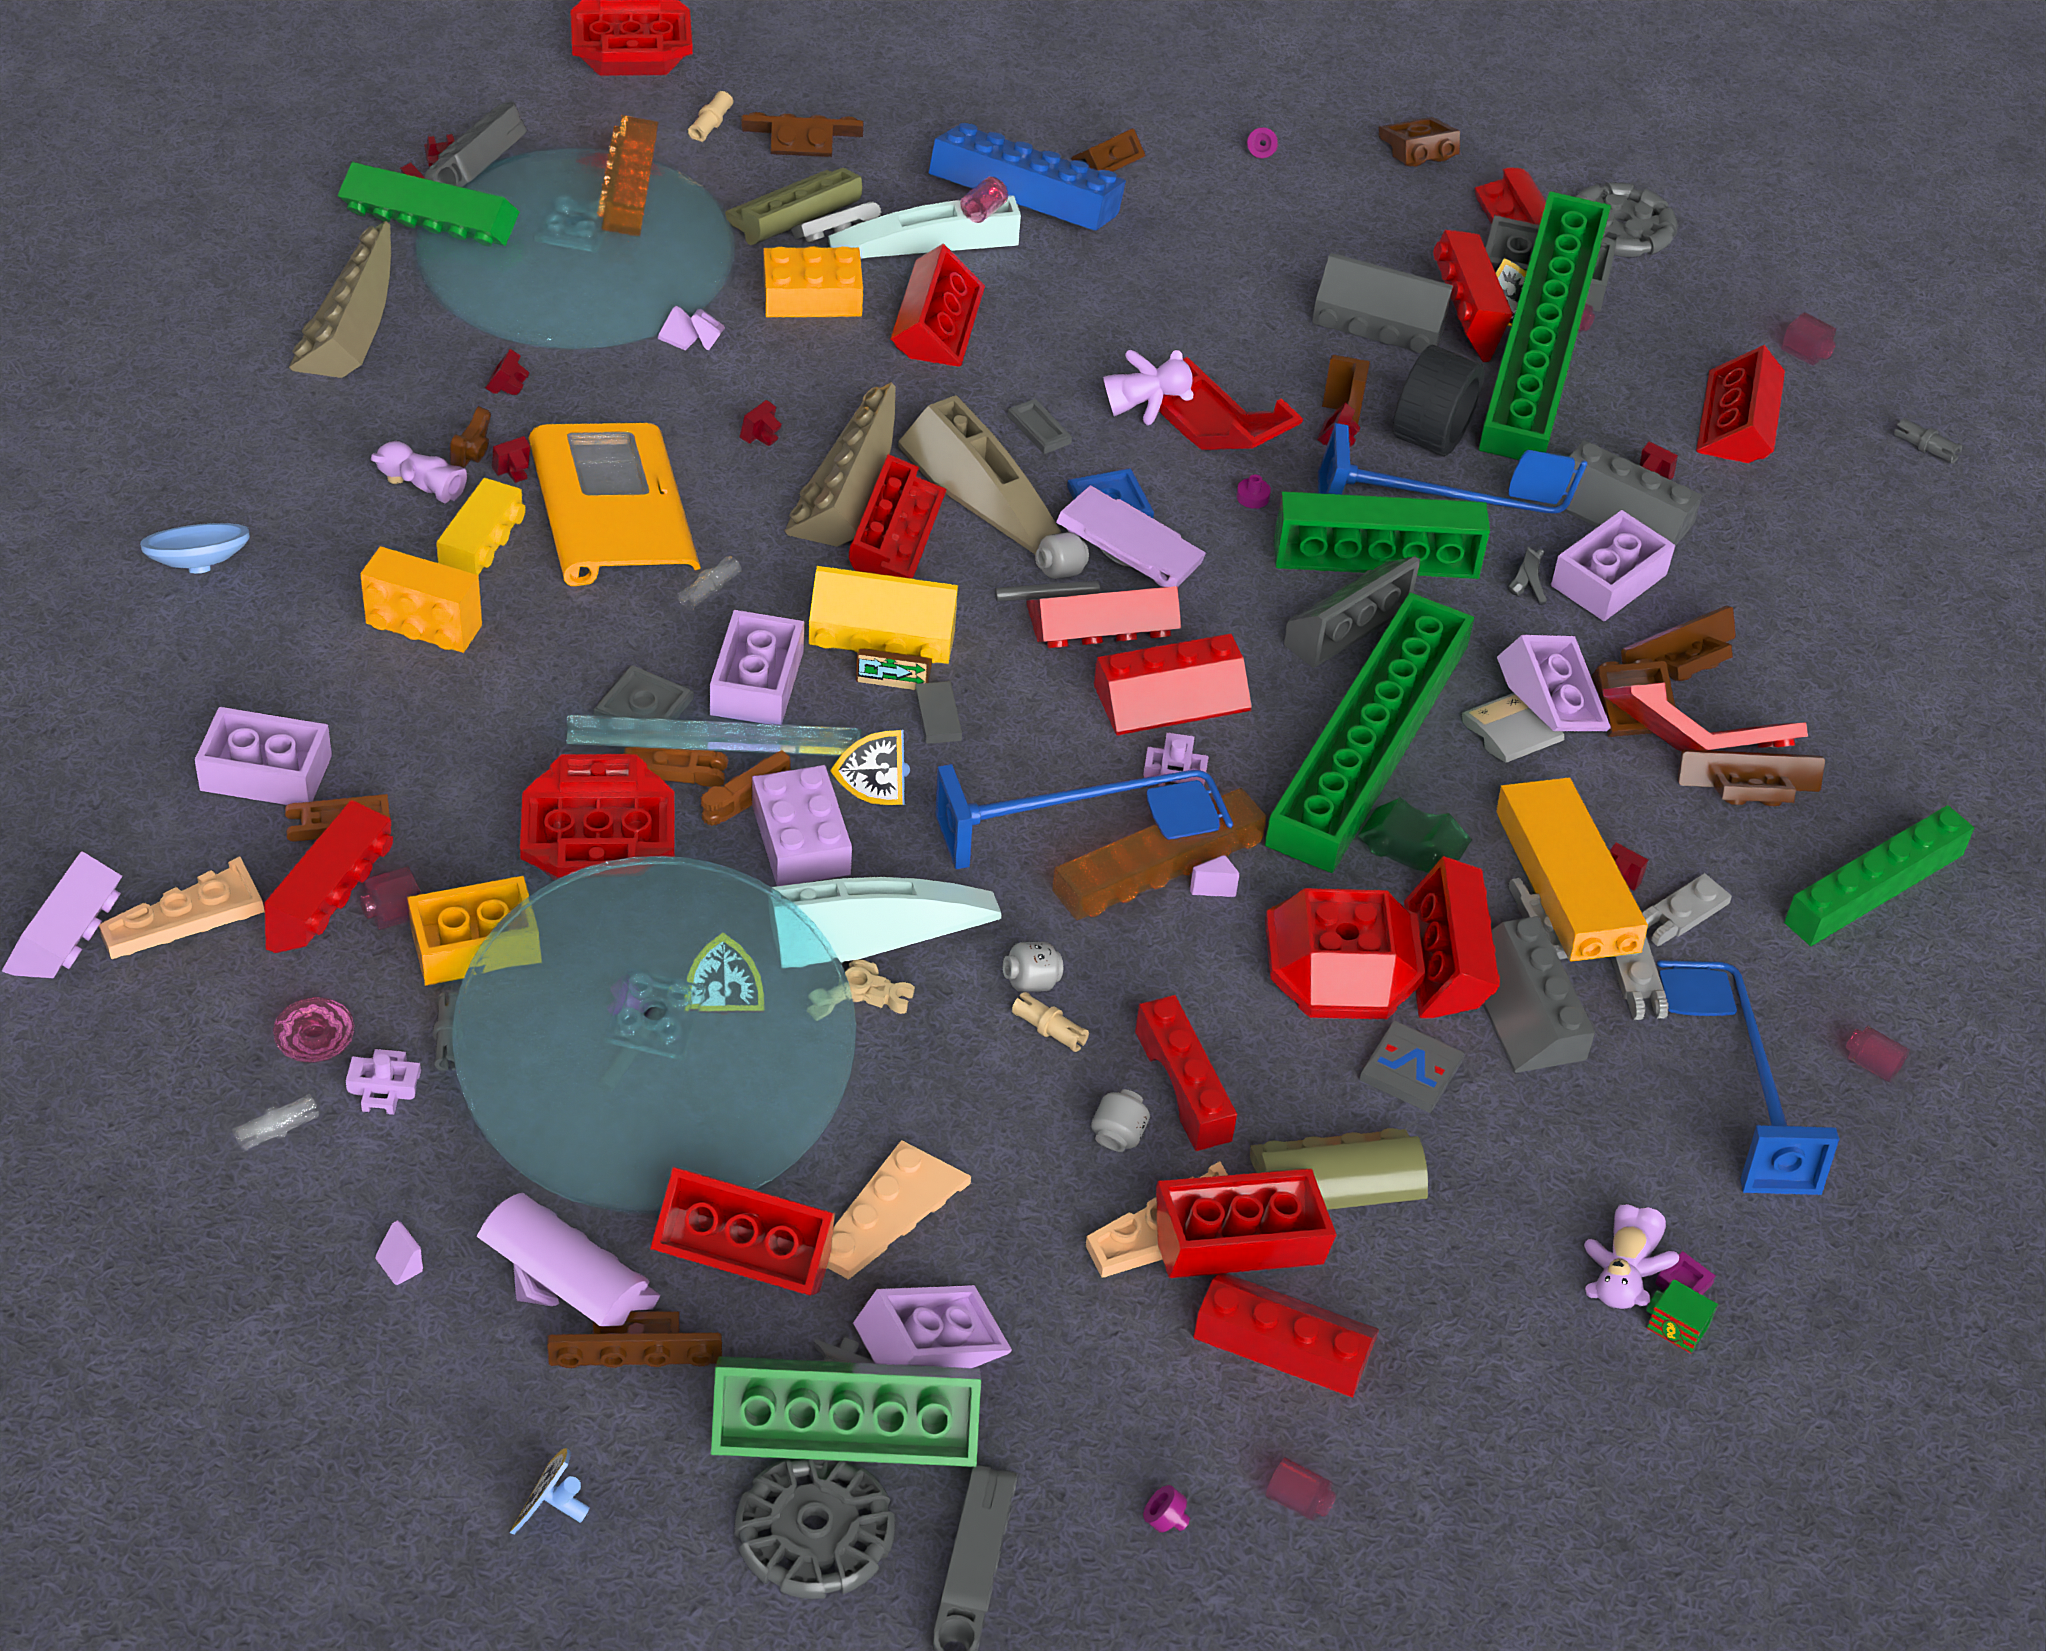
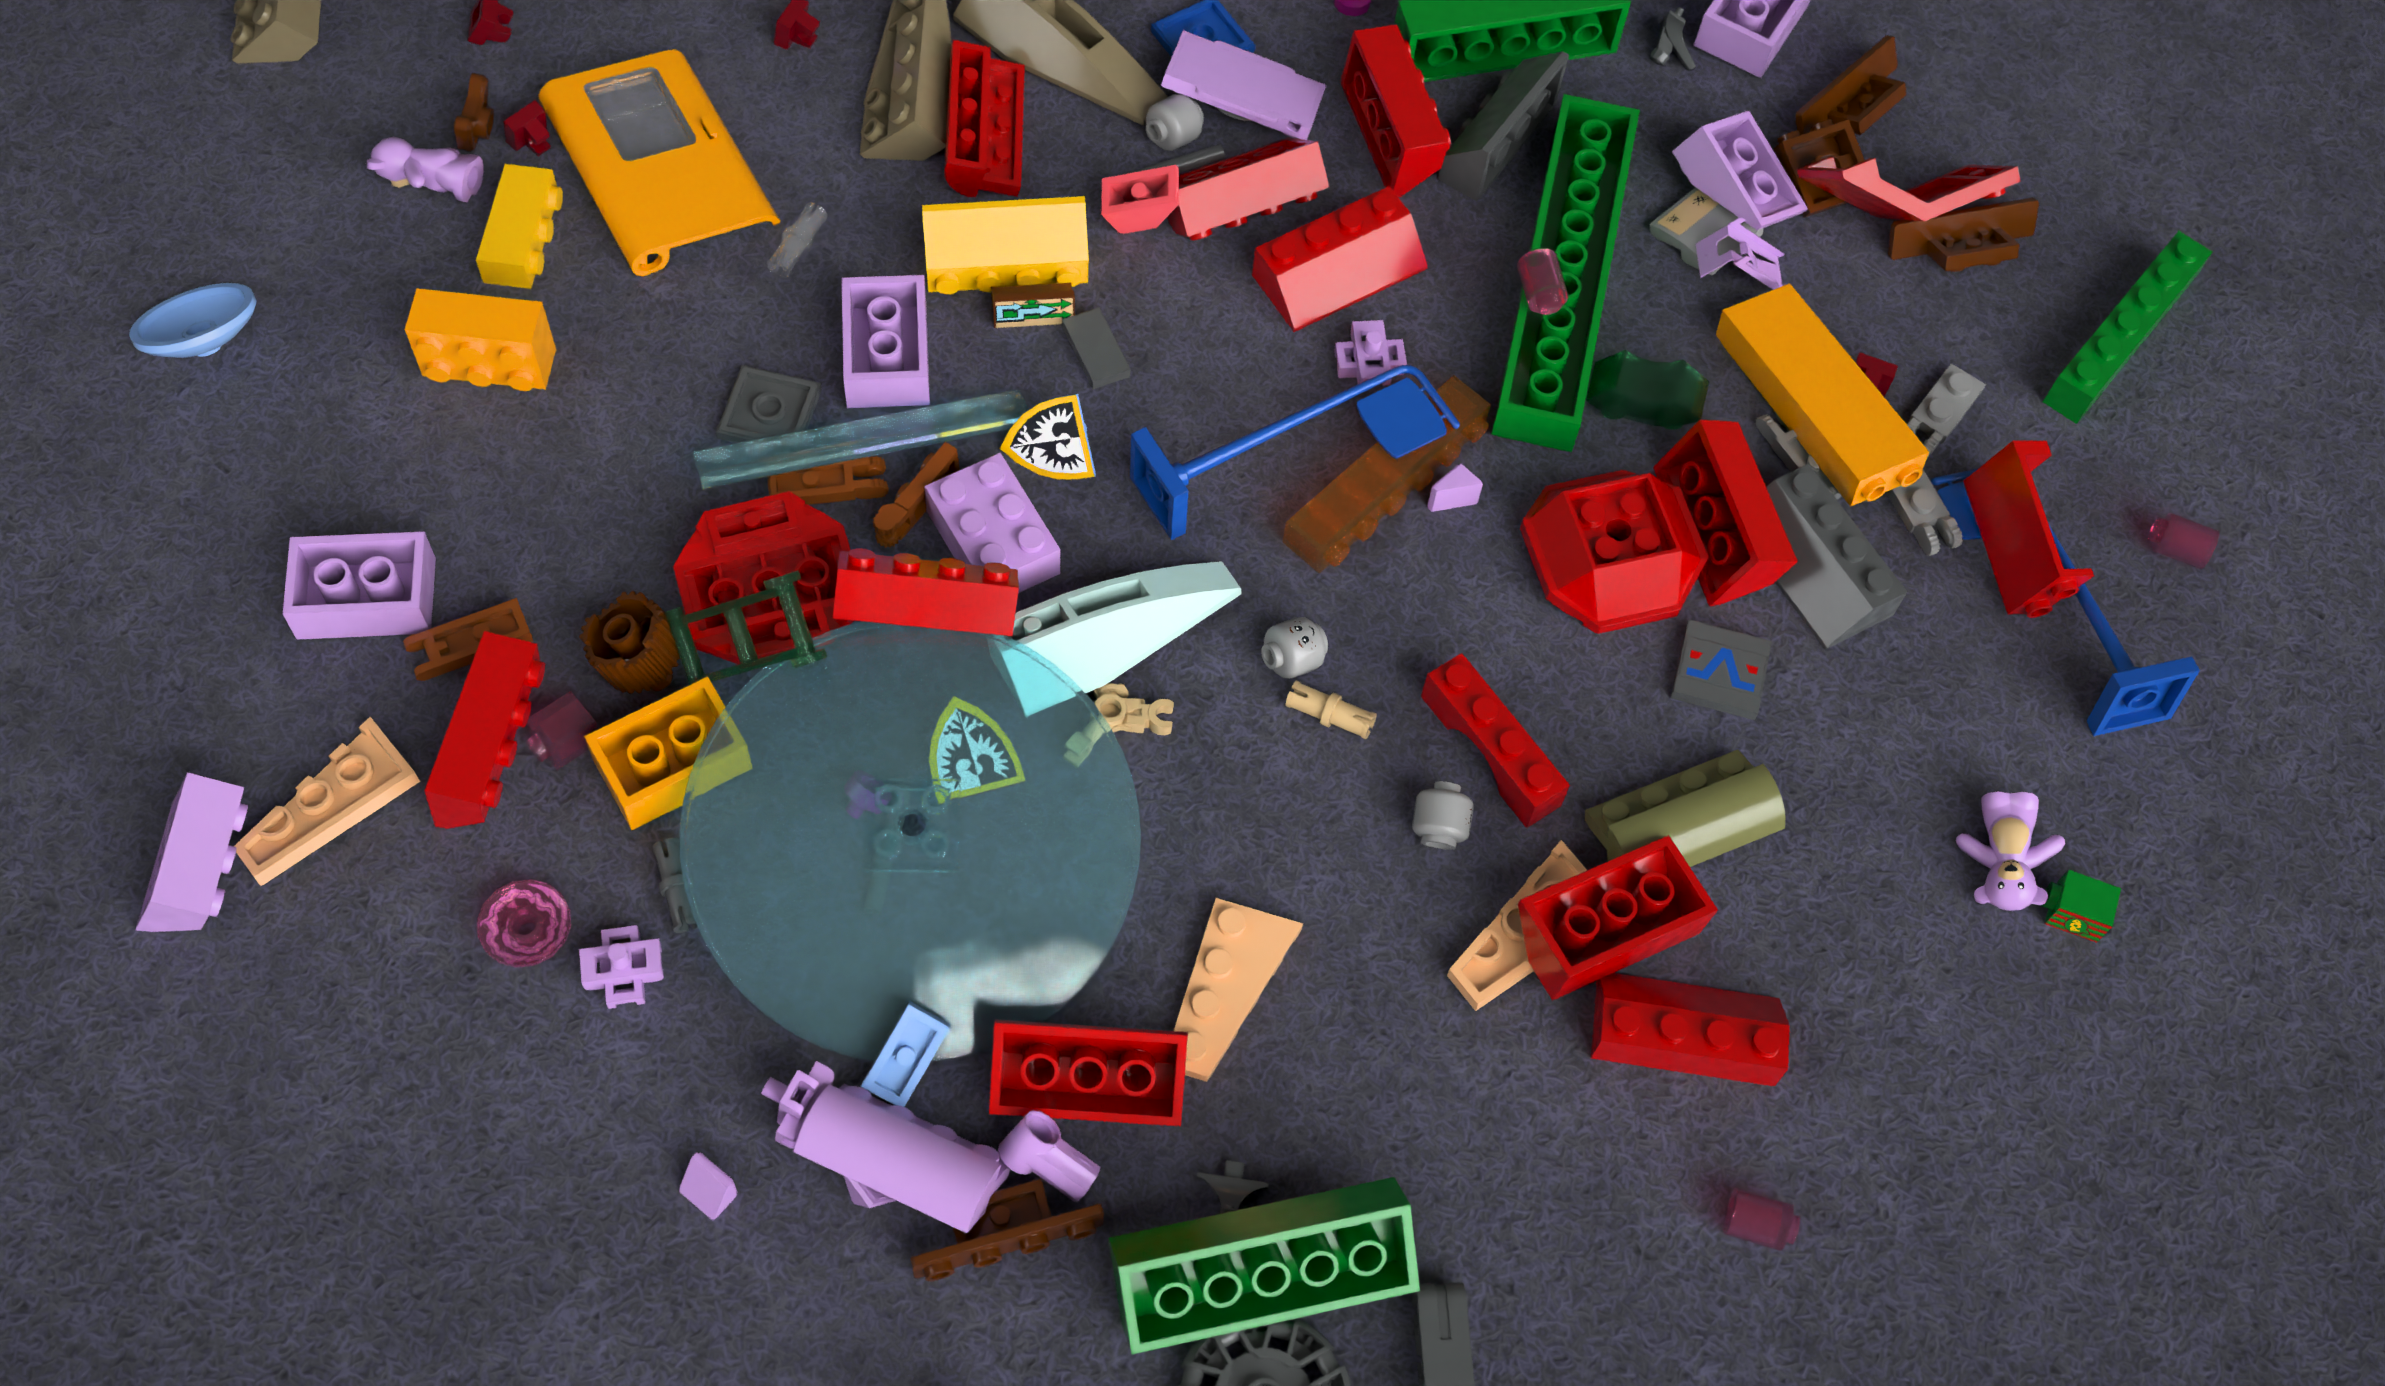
camera: 15 degrees left, 15 degrees up
(275, 1122) = (515, 1051): clear pin -> none
(471, 843) = (631, 644): none -> reddish brown brick
(490, 1196) = (803, 1089): none -> lavender piece
(596, 1192) = (906, 1055): none -> light blue plate
(597, 804) = (780, 586): none -> clear green piece
(683, 1285) = (1038, 1148): none -> lavender piece
(722, 842) = (926, 592): none -> slope
(930, 1327) = (1318, 1131): lavender slope -> none
(1008, 603) = (1140, 198): none -> coral slope
(1166, 1510) = (1628, 1282): magenta tile -> none
(1256, 577) = (1393, 108): none -> red slope
(1338, 724) = (1542, 281): none -> clear pink brick
(1543, 740) = (1761, 270): none -> lavender piece
(1688, 1273) = (2076, 856): magenta plate -> none
(1715, 1047) = (2018, 531): none -> red panel

